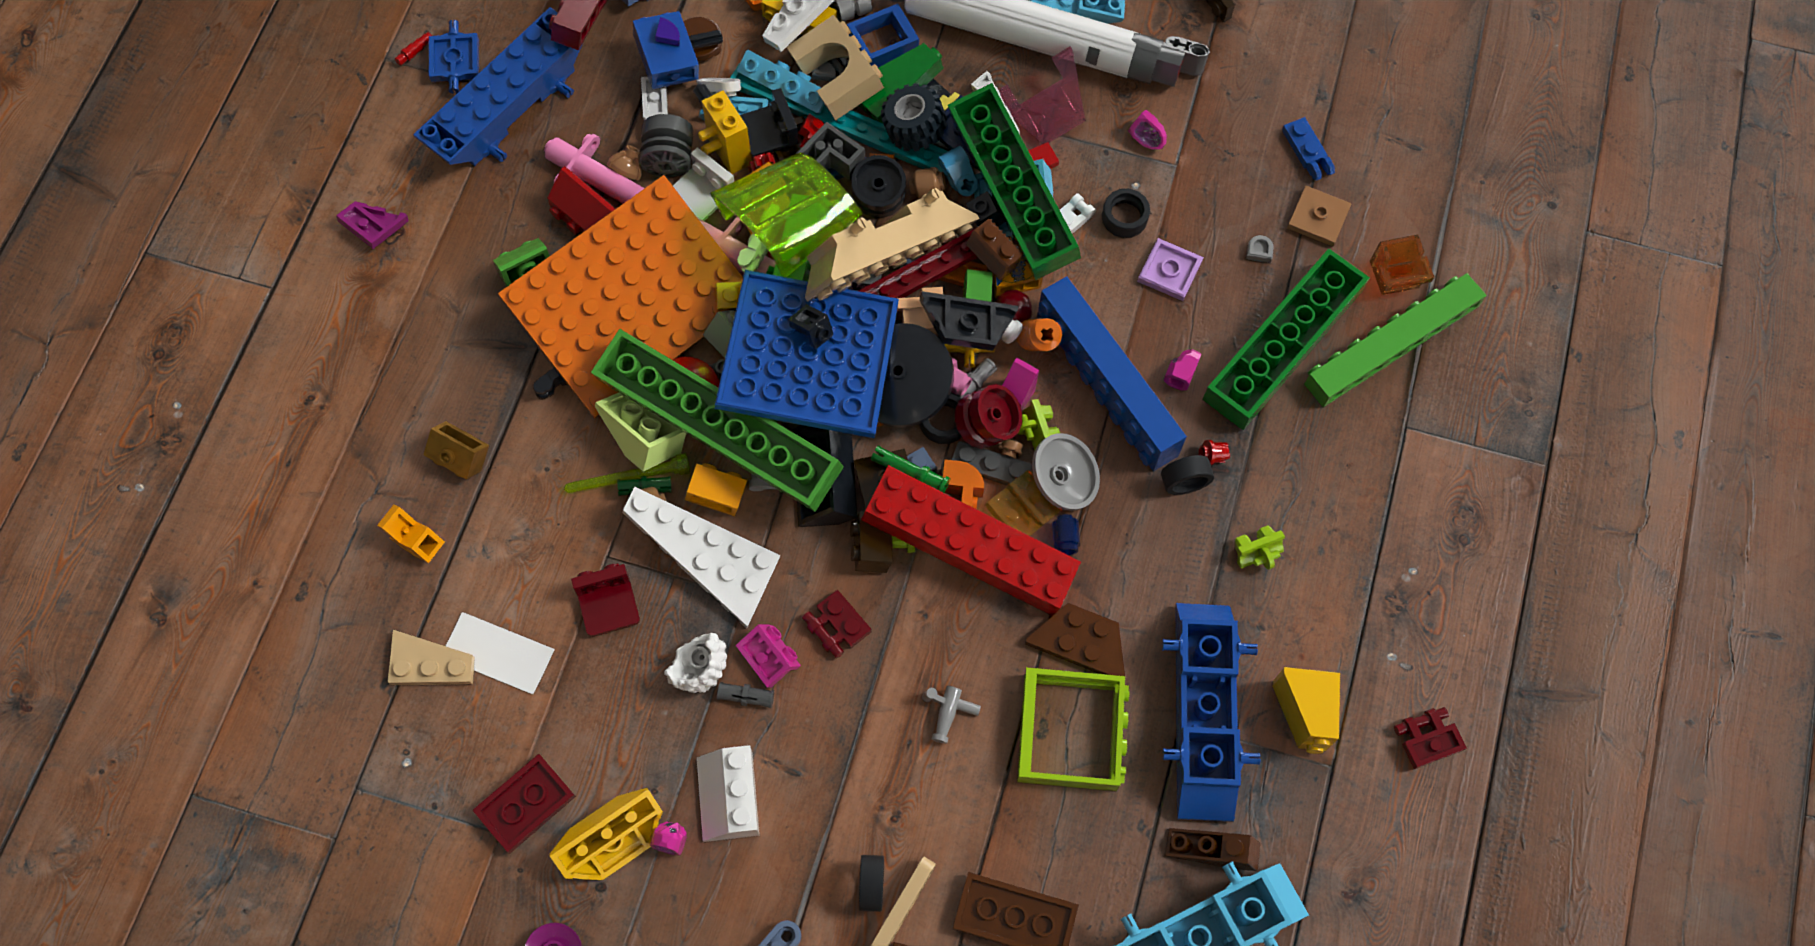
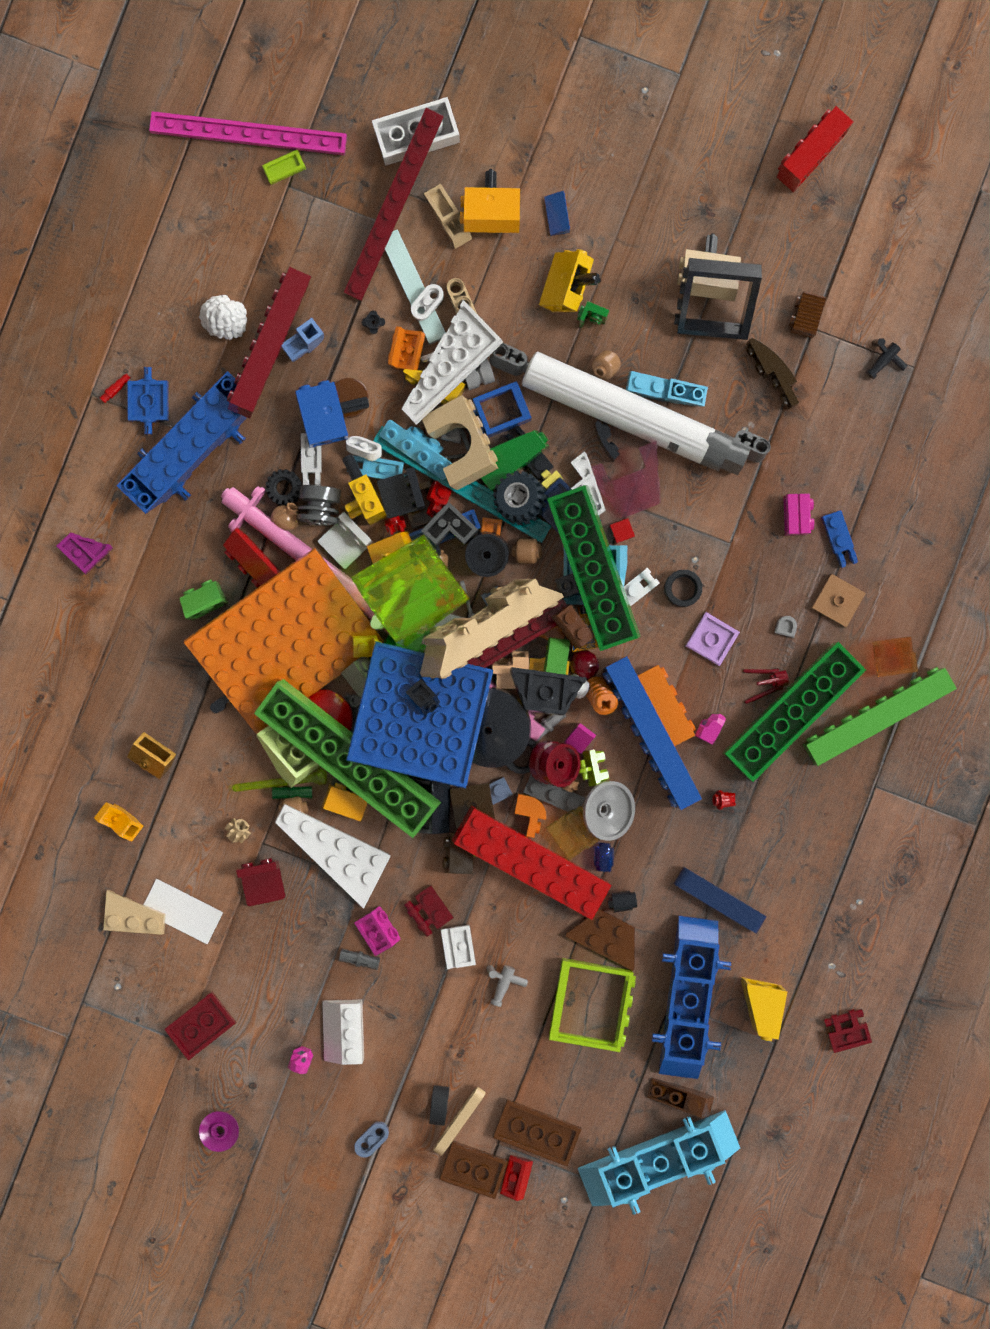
camera: 10 degrees right, 20 degrees up
(572, 536) = (237, 830): none -> tan gear
(608, 837) = (257, 1056): yellow wedge -> none
(617, 126) = (276, 477): none -> black tyre
(667, 33) = (323, 405): dark purple tile -> none
(694, 672) = (325, 938): white hair -> none
(881, 666) = (458, 946): none -> white plate
(922, 474) = (500, 810): green pin -> none
(957, 168) = (552, 547): dark azure piece -> none
(1007, 58) = (603, 434): none -> black slope
(1098, 589) = (622, 901): none -> black brick
(1126, 337) = (666, 705): none -> orange brick
(1148, 131) = (710, 515): rock -> none
(1187, 475) = (700, 820): black tyre -> none
(1228, 578) = (720, 900): none -> dark blue beam
(1253, 124) = (797, 514): none -> dark pink brick
(1258, 306) = (777, 679): none -> dark red plant
(1261, 551) = (755, 876): lime hips -> none

